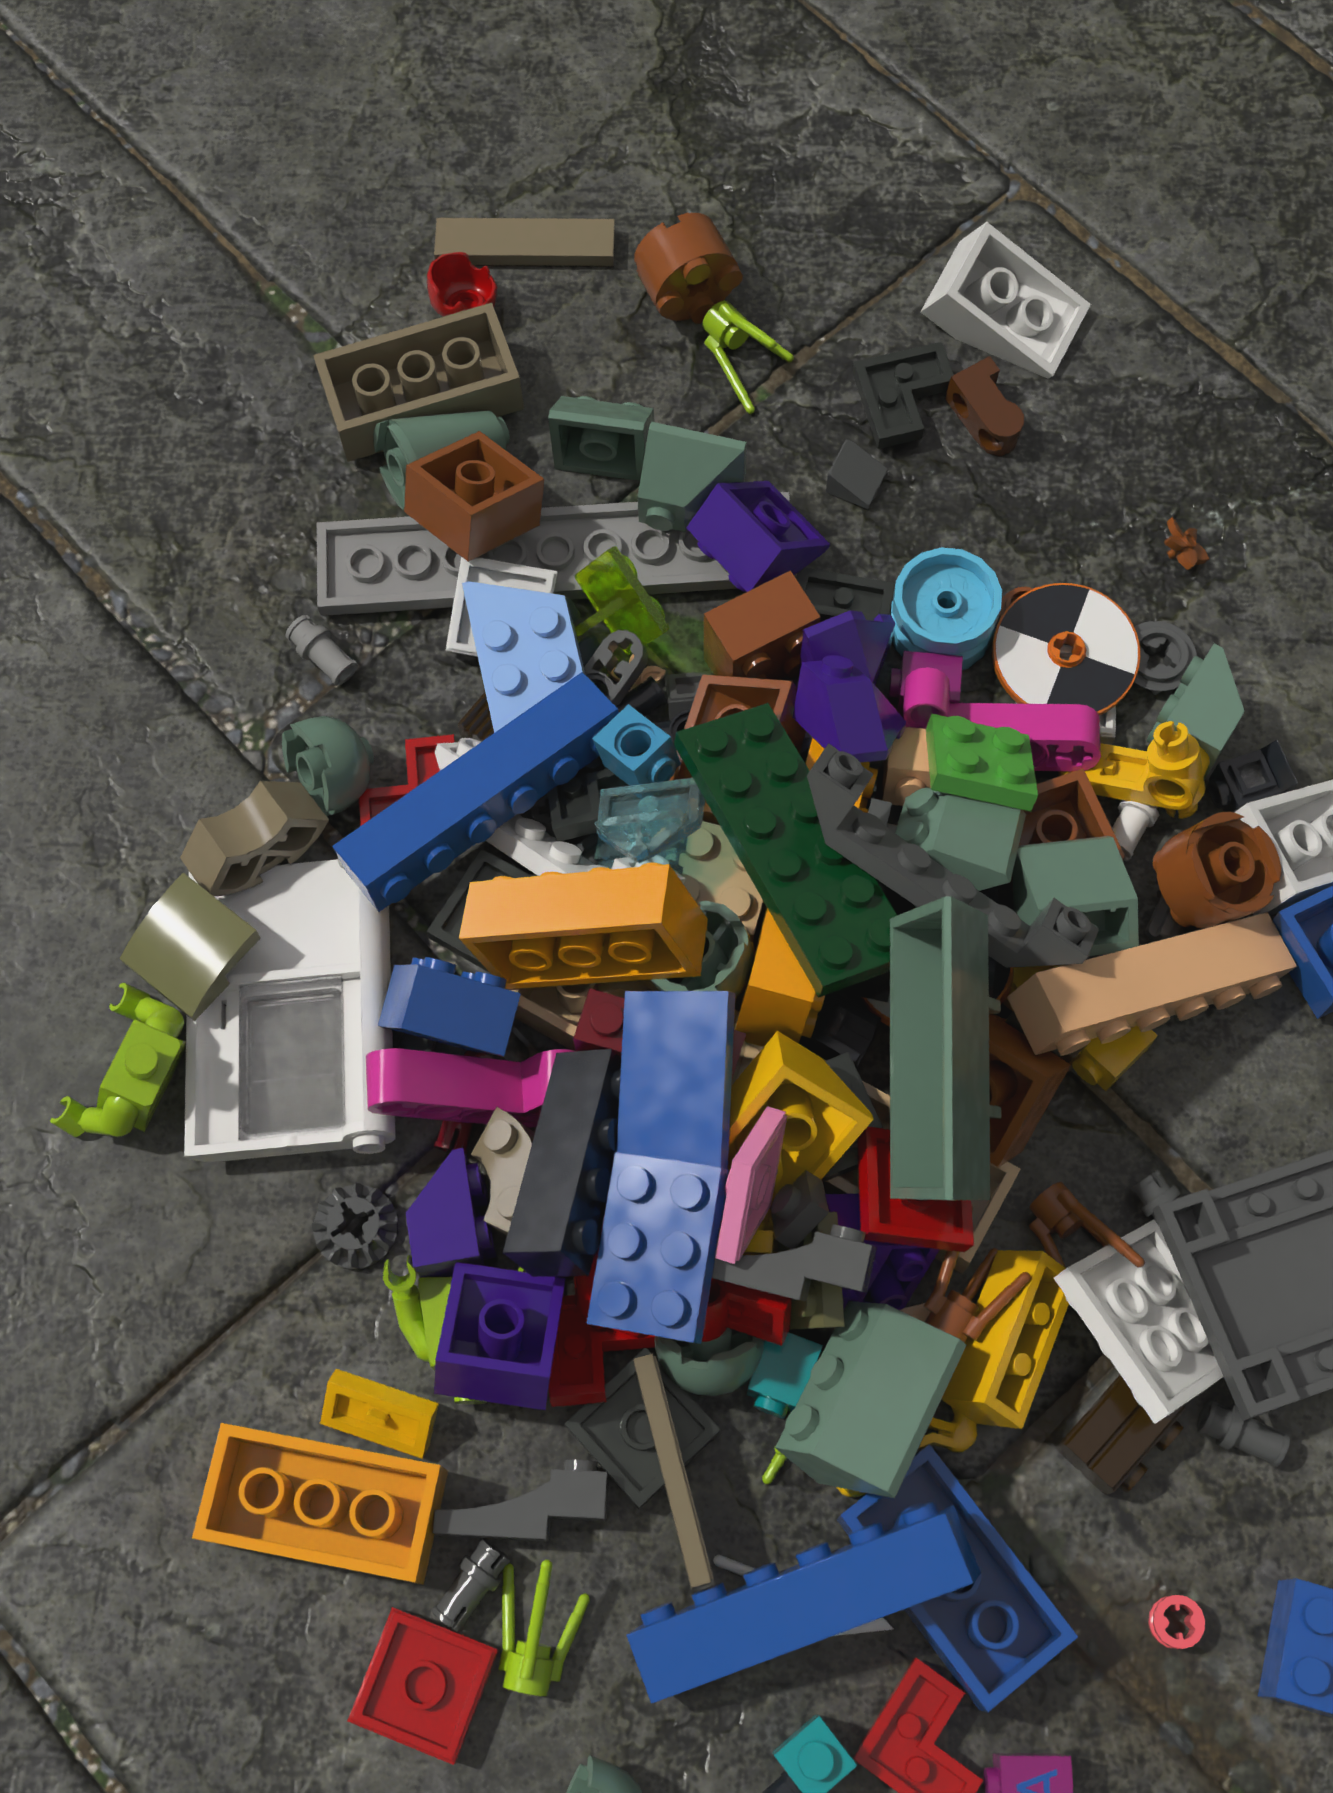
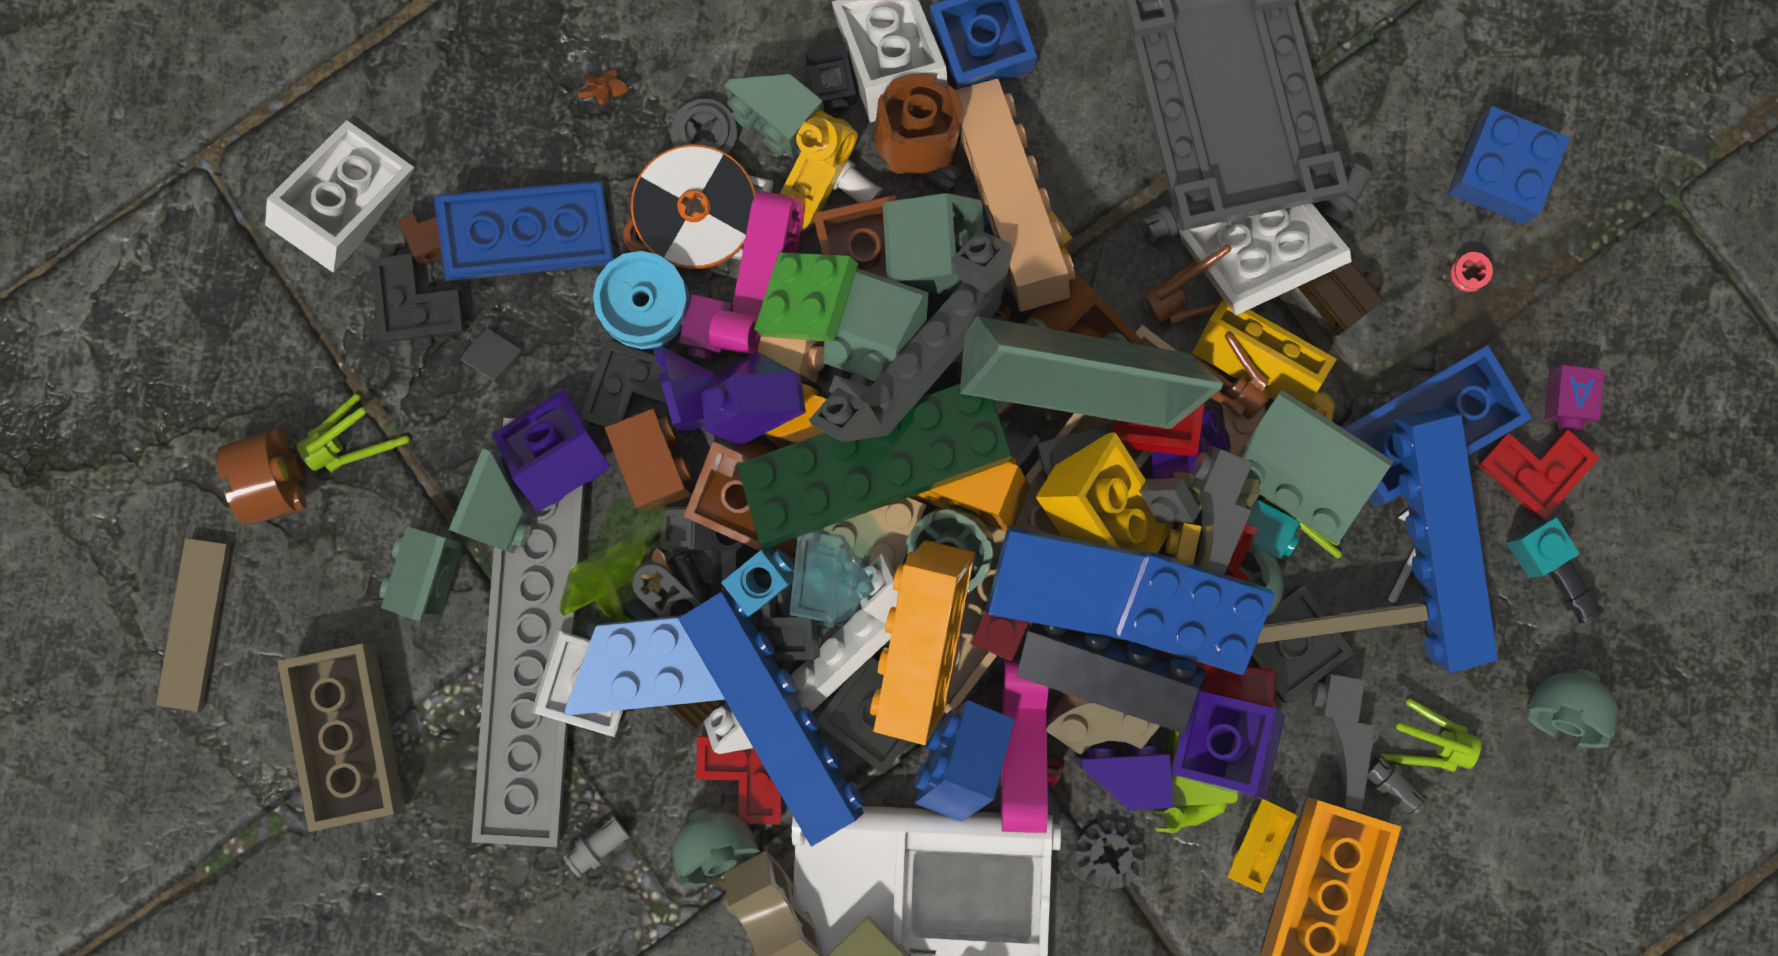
camera: 85 degrees left, 15 degrees up
(415, 437) = (419, 725): sand green cone -> none
(423, 1685) = (1462, 828): red plate -> none
(459, 285) = (243, 689): red hair -> none
(473, 495) = (481, 696): dark orange brick -> none
(751, 1185) = (1160, 536): bright pink plate -> none
(1003, 480) = (523, 230): none -> blue tile

